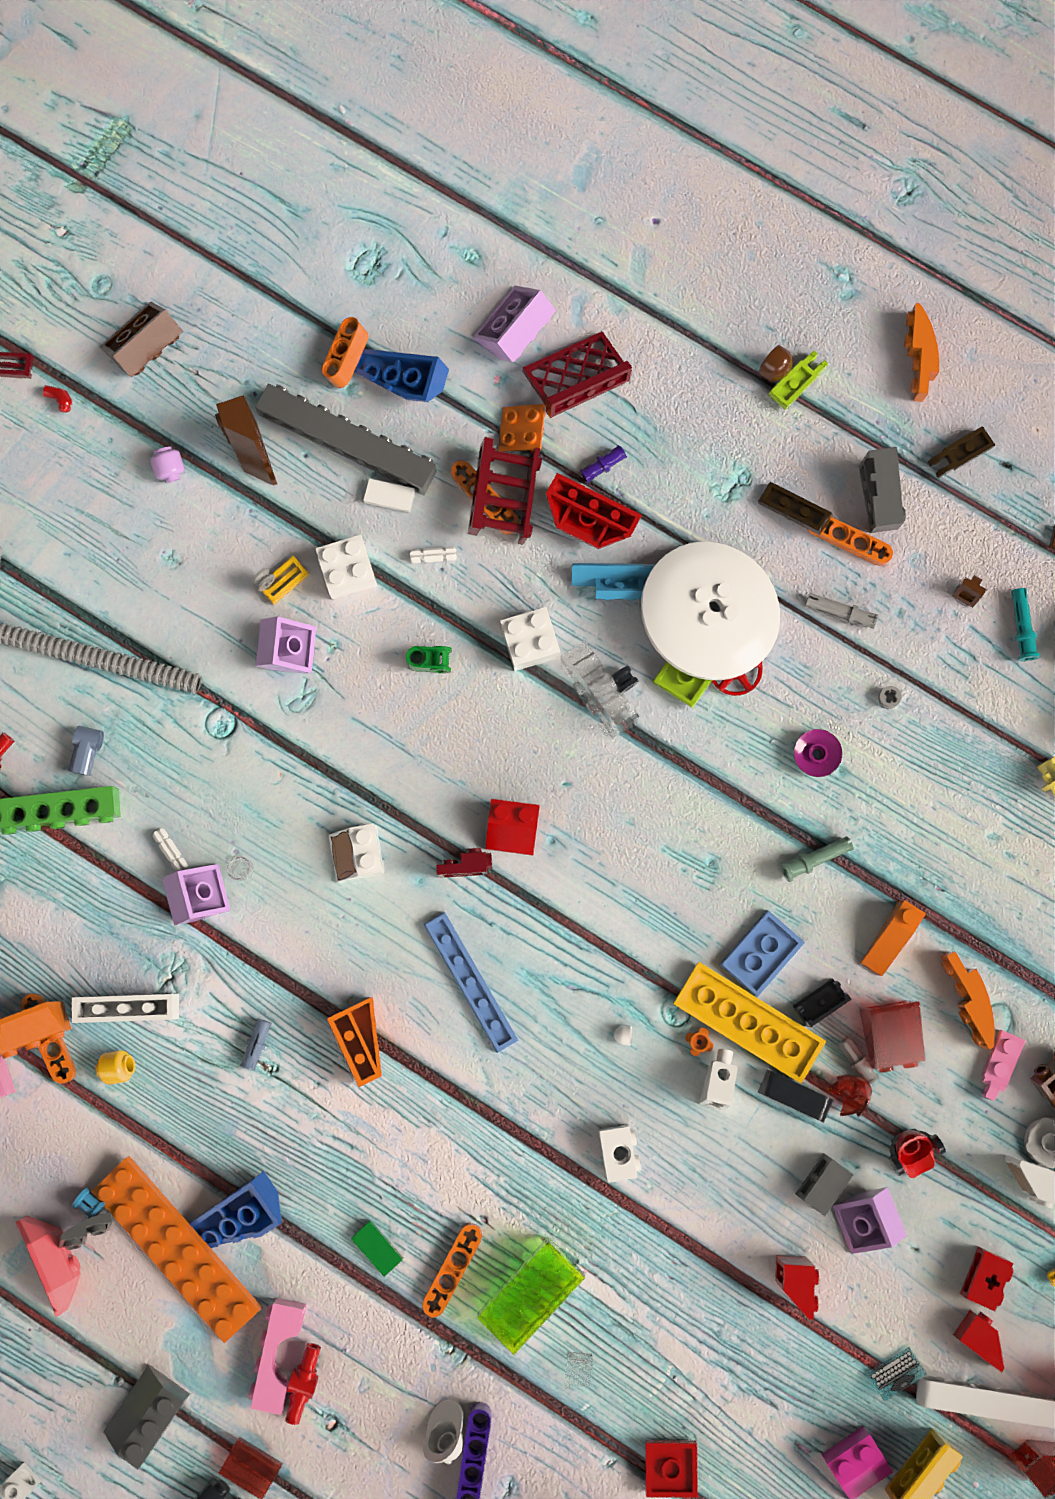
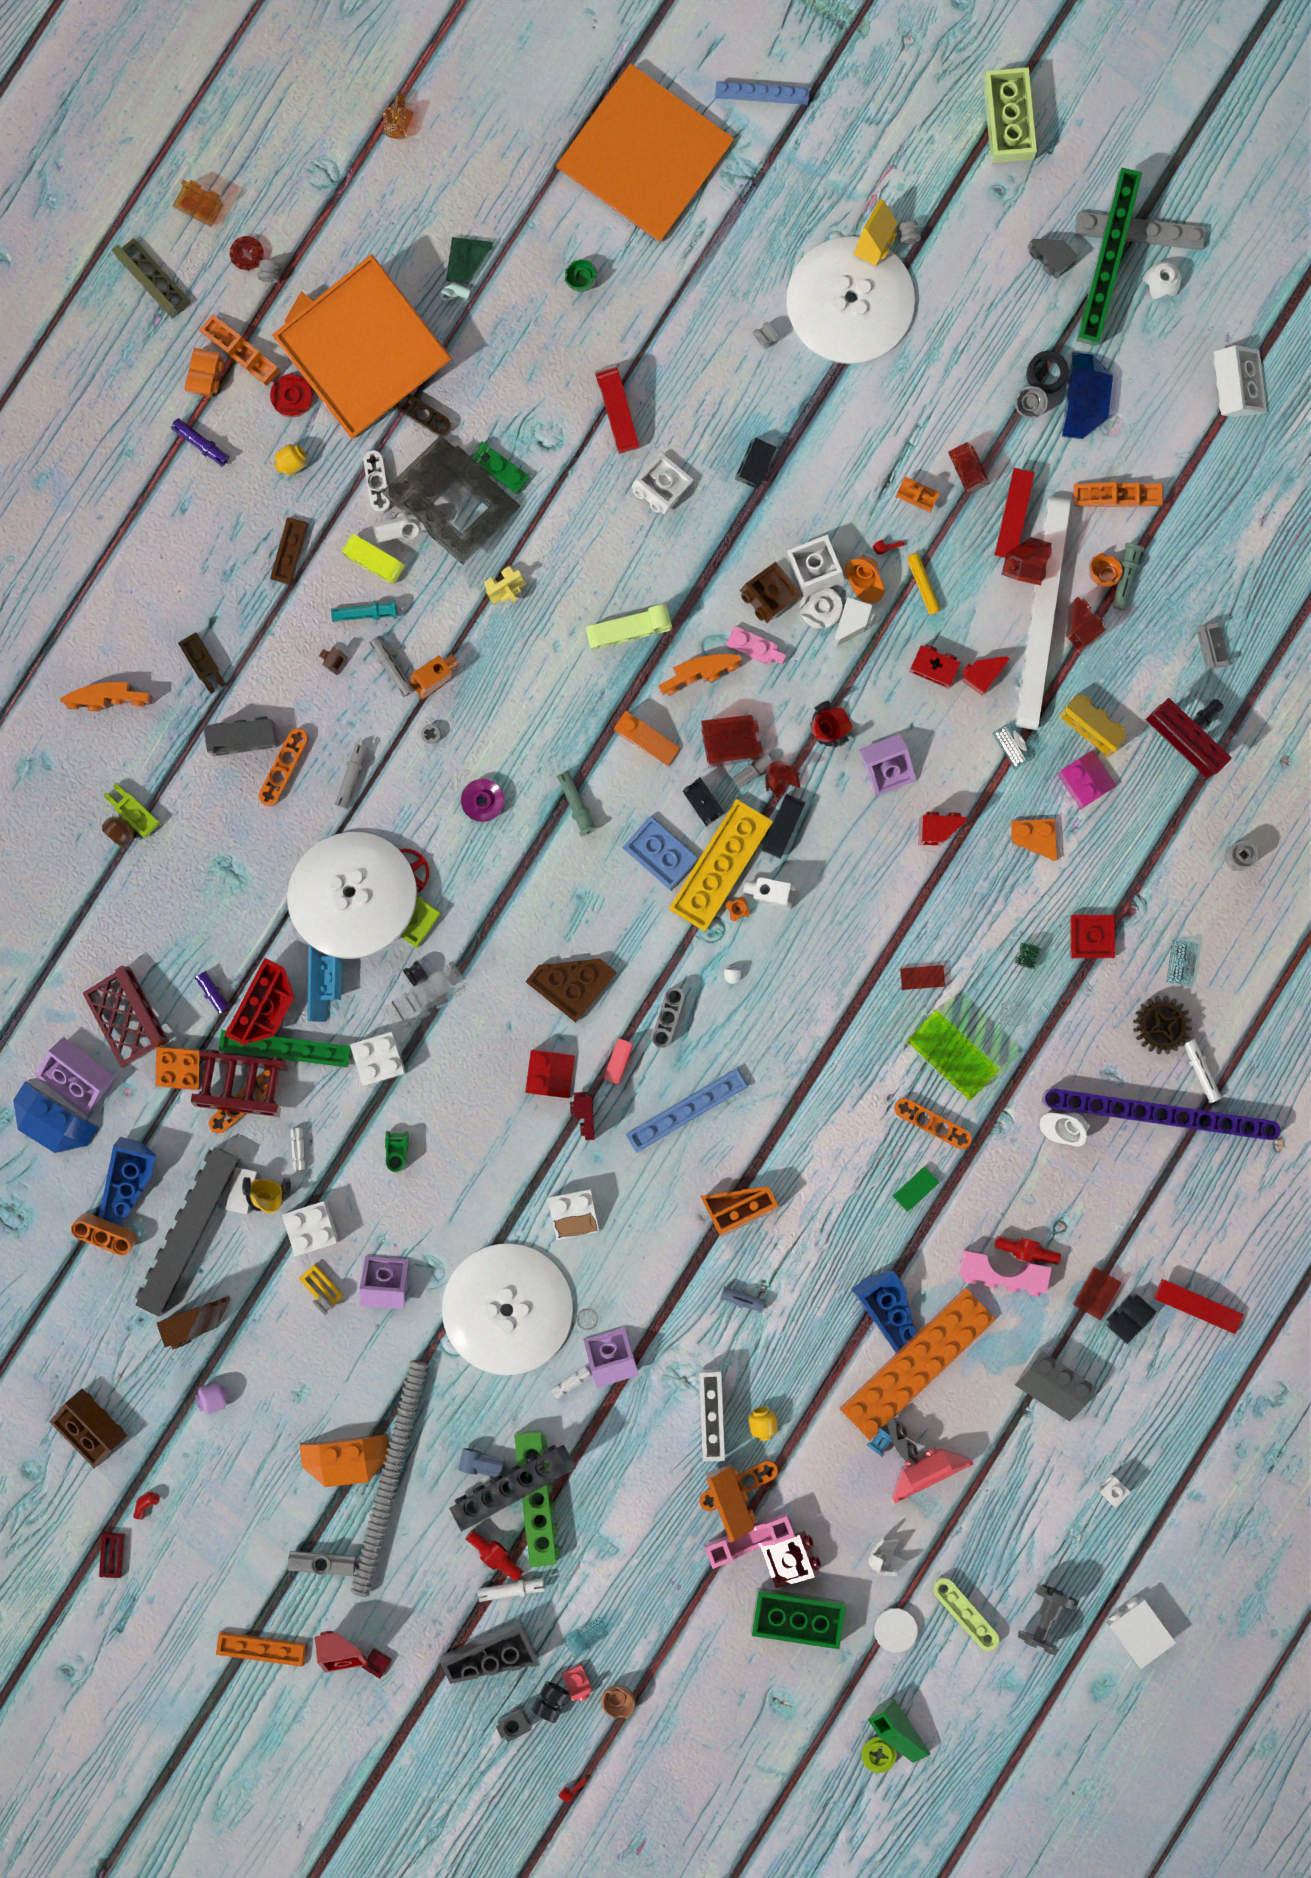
camera: 90 degrees left, 5 degrees up
(26, 736) = (467, 1516): none -> black brick
(96, 604) = (344, 1459): none -> orange wedge
(287, 788) = (513, 1277): none -> white dish
(384, 518) = (265, 1194): none -> yellow cap
(465, 300) = (50, 1121): none -> blue wedge
(526, 904) = (618, 1061): none -> coral slope
(540, 547) = (290, 1050): none -> green plate
(586, 967) = (668, 1006): none -> light grey beam
(612, 852) = (571, 984): none -> reddish brown plate
(616, 1168) = (846, 981): white brick -> none
(621, 1259) = (922, 977): none -> clear red tile
(647, 1388) = (1027, 955): none -> clear green wheel
(788, 1400) = (1036, 836): none -> orange wing
(795, 508) = (255, 816): dark brown tile -> none
(824, 1184) = (858, 802): dark grey hinge -> none
(957, 698) = (425, 679): none -> orange torso
(973, 648) = (393, 669): none -> light grey pin
(1019, 921) = (629, 628): none -> yellowish green beam

